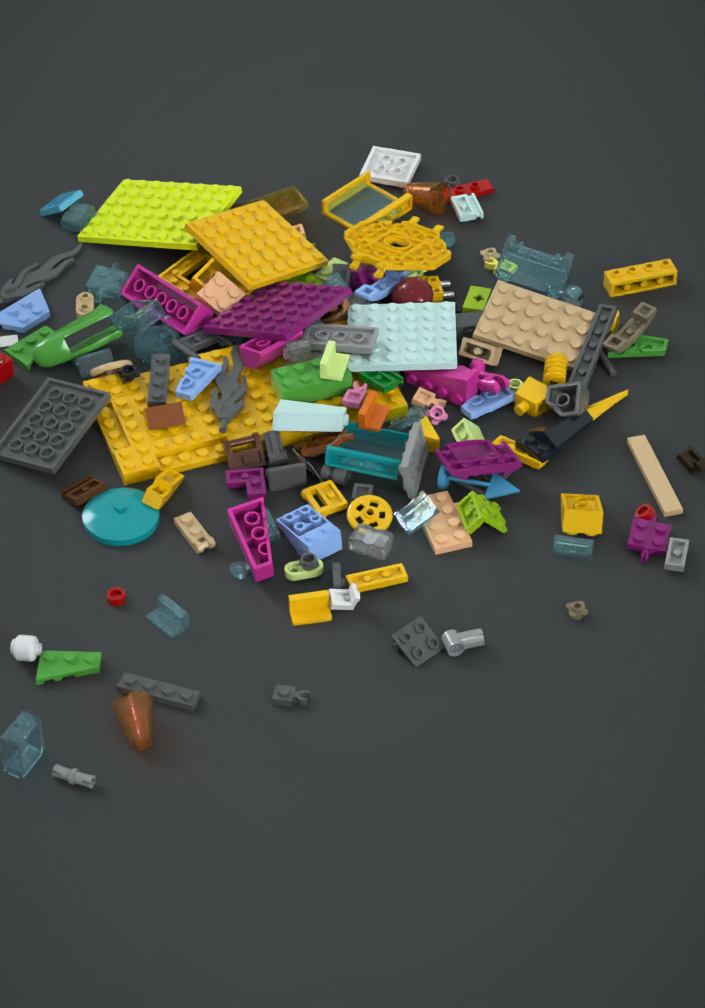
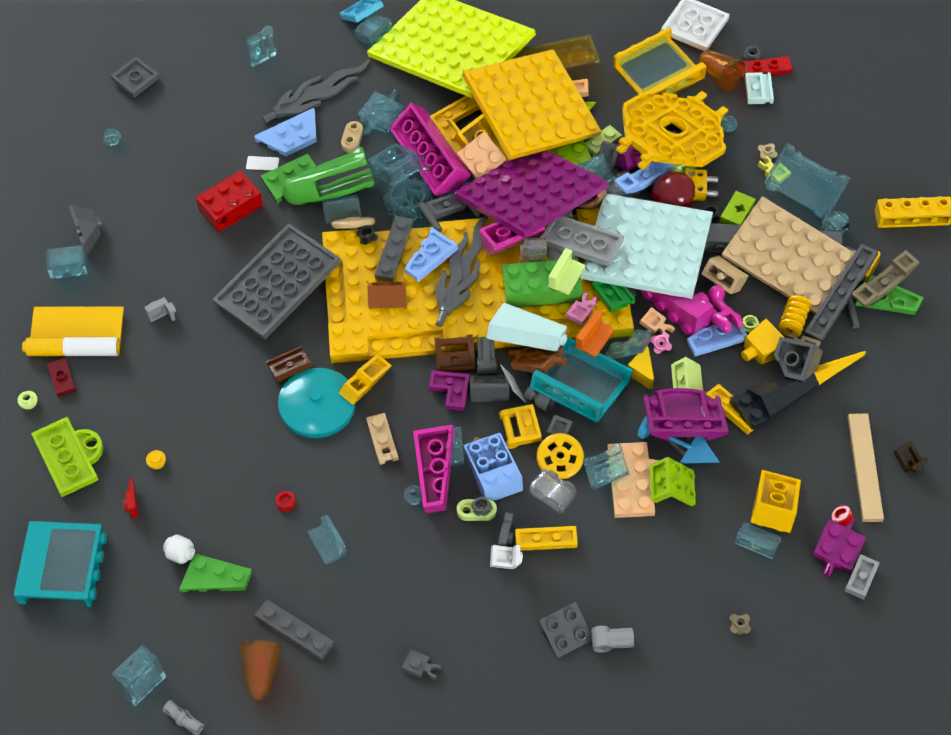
camera: 15 degrees right, 15 degrees up
(309, 608) = (469, 561): yellow panel -> none
(414, 460) = (620, 401): light grey plate -> none

